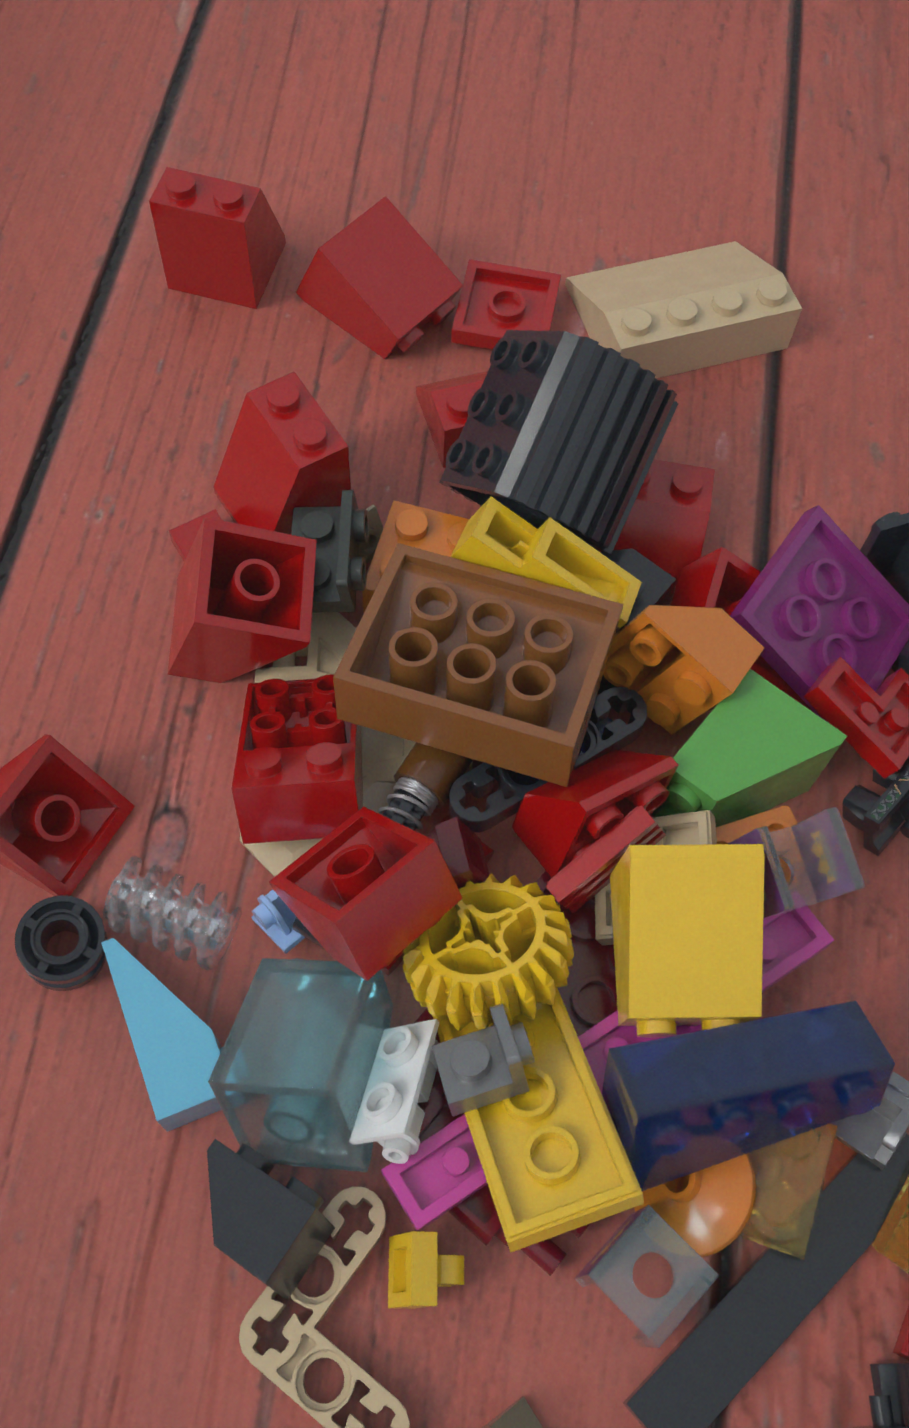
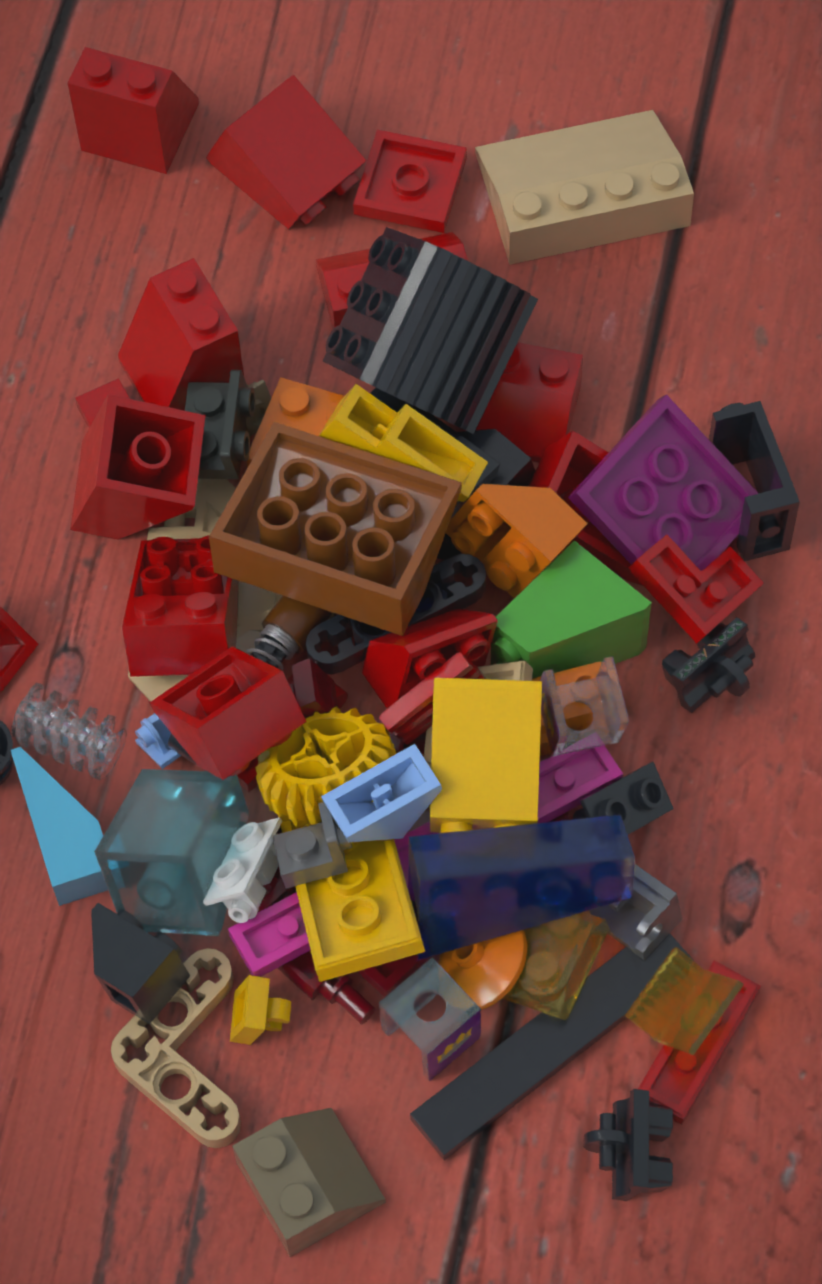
camera: 10 degrees right, 0 degrees up
(588, 990) = (400, 795): none -> light blue slope
(836, 977) = (636, 797): none -> black hinge

